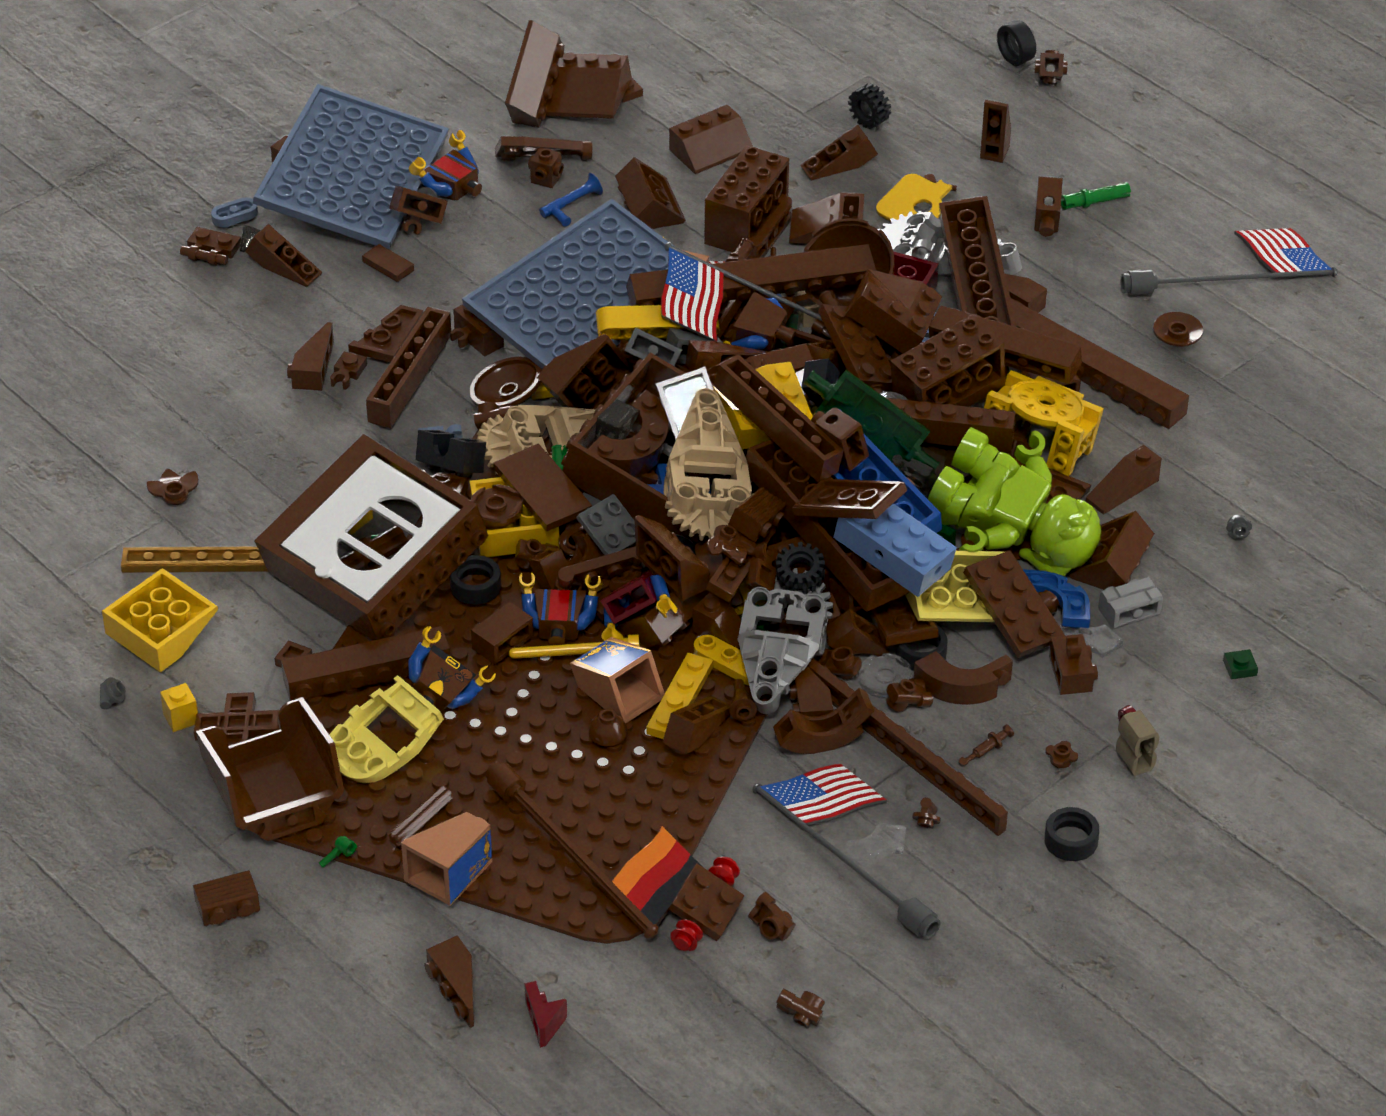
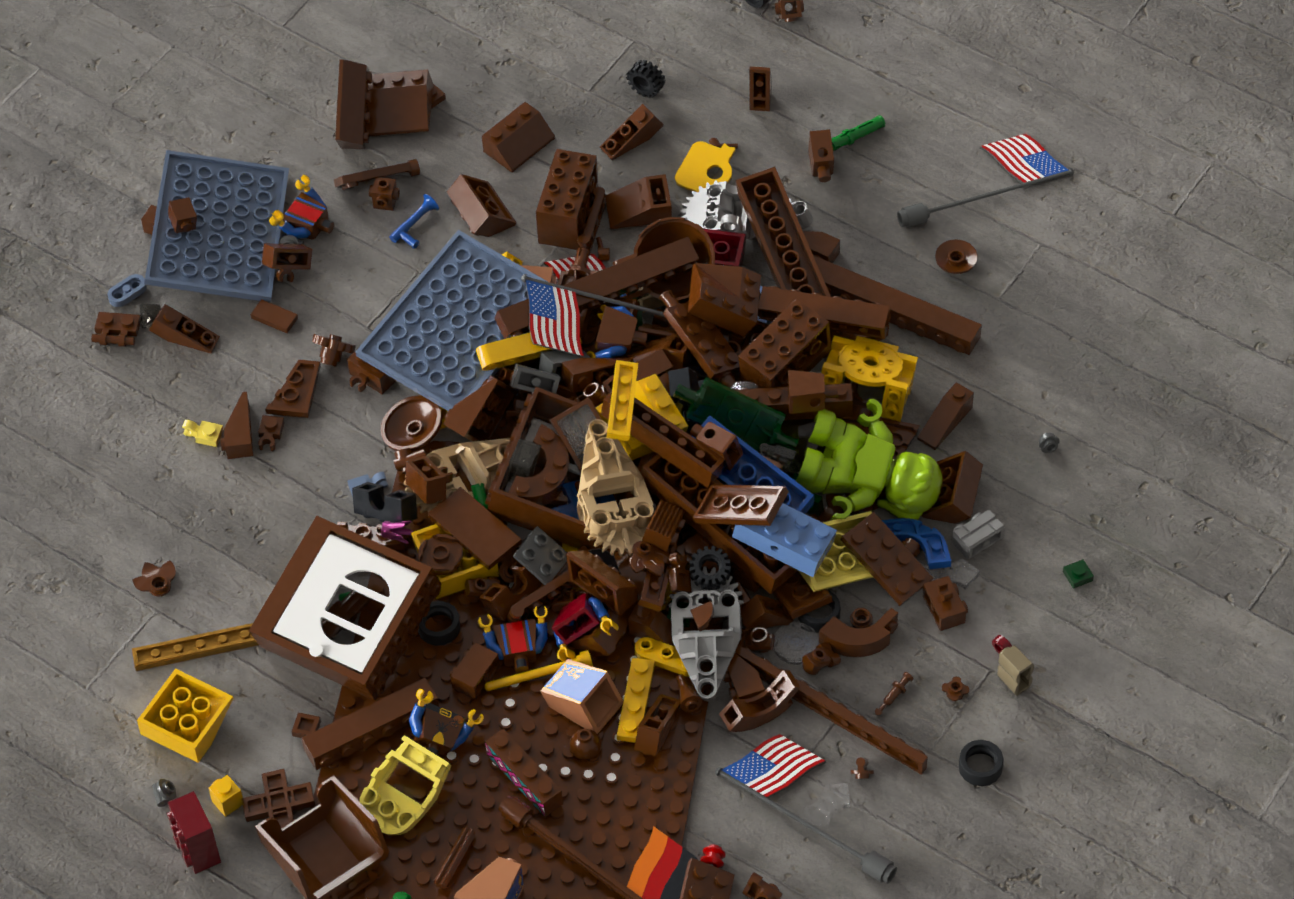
camera: 10 degrees left, 10 degrees up
(127, 731) = (193, 833): none -> dark red brick
(272, 359) = (206, 433): none -> light yellow plate
(314, 143) = (182, 215): none -> reddish brown brick
(408, 367) = (324, 422): reddish brown brick -> none
(441, 296) = (332, 348): none -> reddish brown plant
(448, 476) = (395, 530): none -> flat silver piece
(502, 428) = (427, 479): none -> reddish brown brick
(526, 743) = (524, 773): none -> reddish brown brick
(739, 366) = (622, 400): none -> yellow plate
(779, 614) = (703, 615): none -> reddish brown tile
(961, 406) = (808, 391): none -> reddish brown torso
(969, 660) = (861, 613): none -> reddish brown plate

